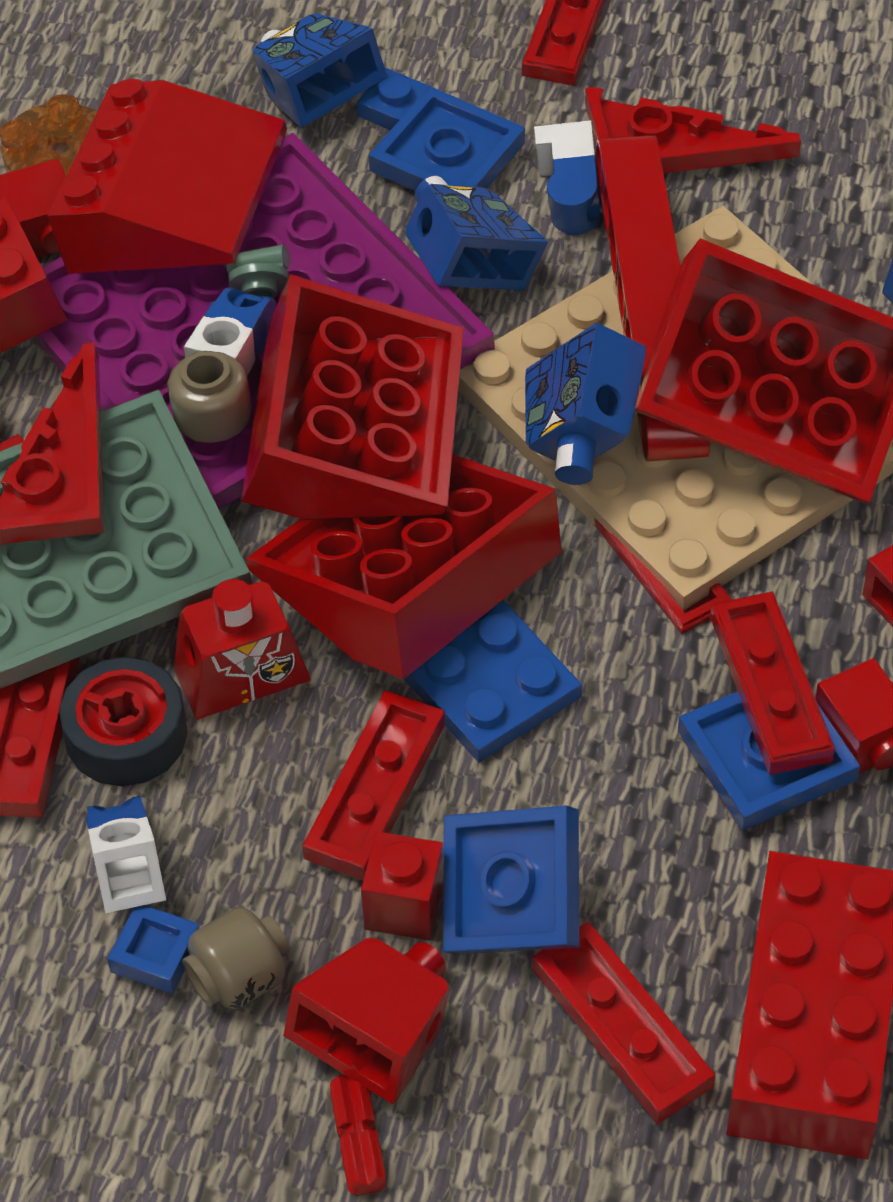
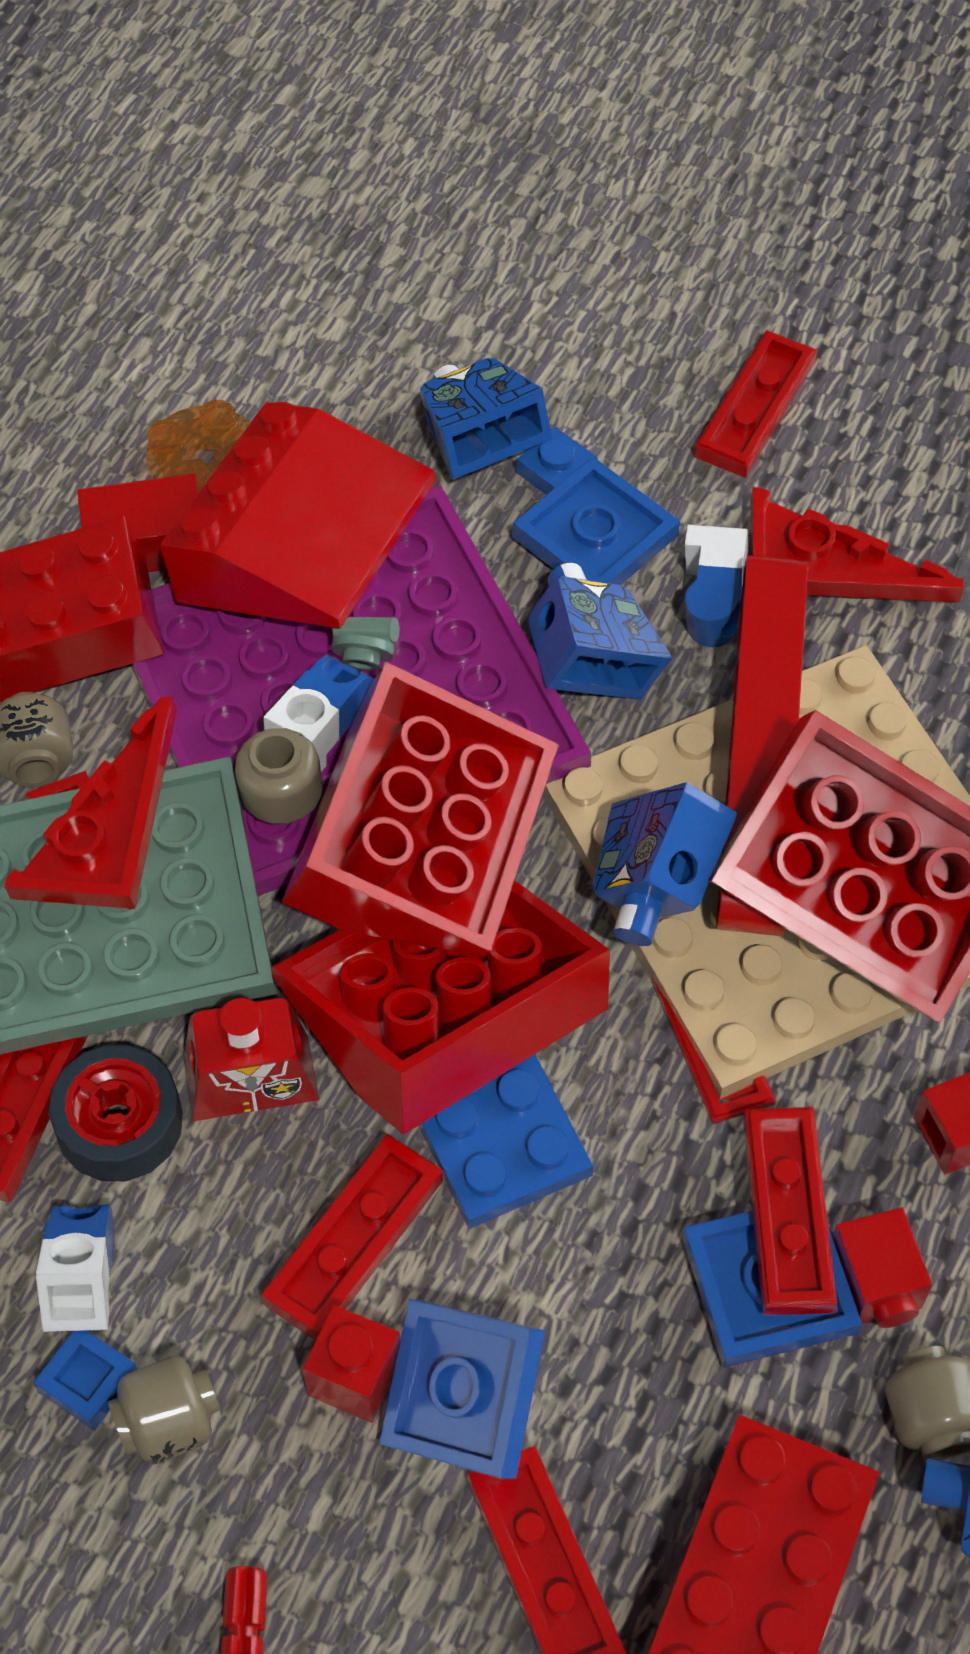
camera: 10 degrees right, 5 degrees up
(372, 1013) = (287, 1505): red torso -> none

